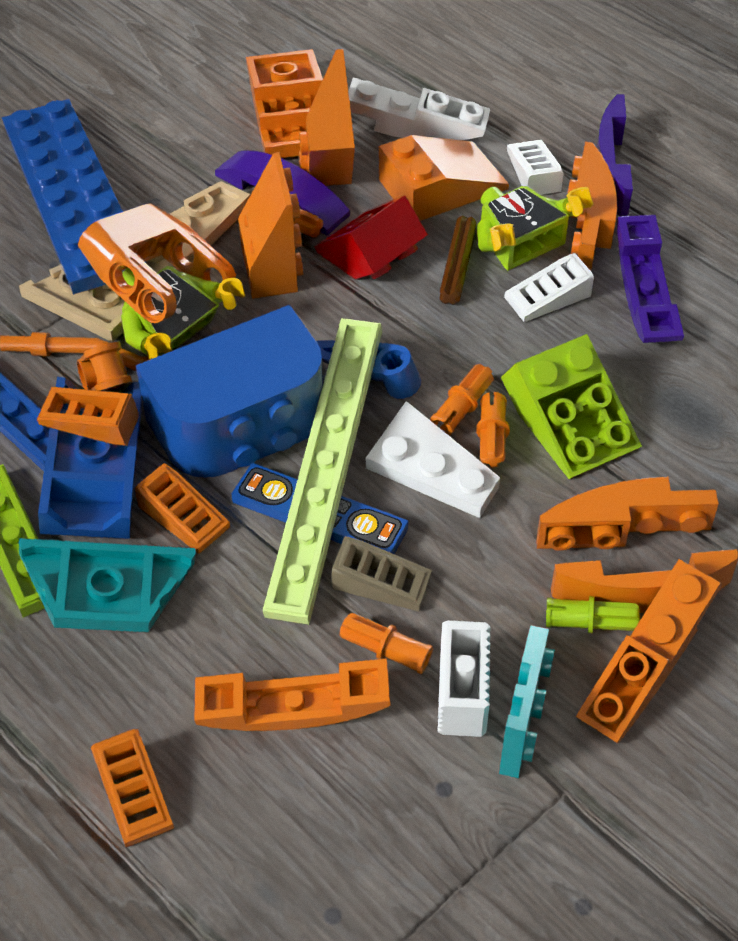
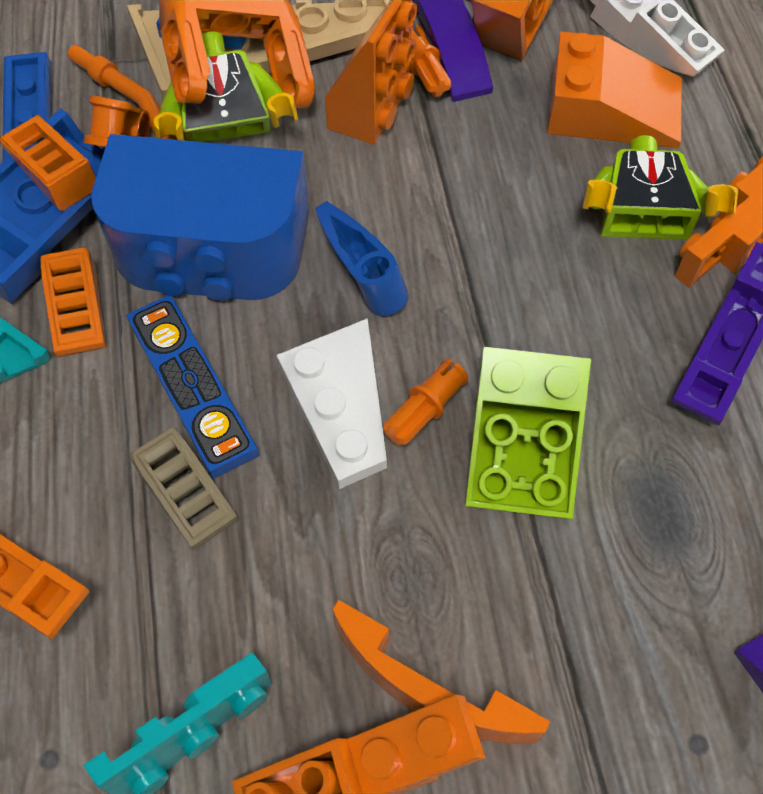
camera: 35 degrees right, 10 degrees up
(323, 473) = (217, 344): yellowish green tile -> none
(374, 239) = (483, 131): red slope -> none
(386, 642) = (125, 565): orange axle -> none
(457, 260) = (552, 197): reddish brown axle -> none
(463, 398) = (426, 349): orange axle -> none
(464, 678) = (142, 661): white brick -> none
(536, 166) = (724, 139): white slope -> none
(569, 272) = (640, 268): white slope -> none
(592, 614) = (345, 679): lime axle -> none
(612, 511) = (455, 574): orange slope -> none

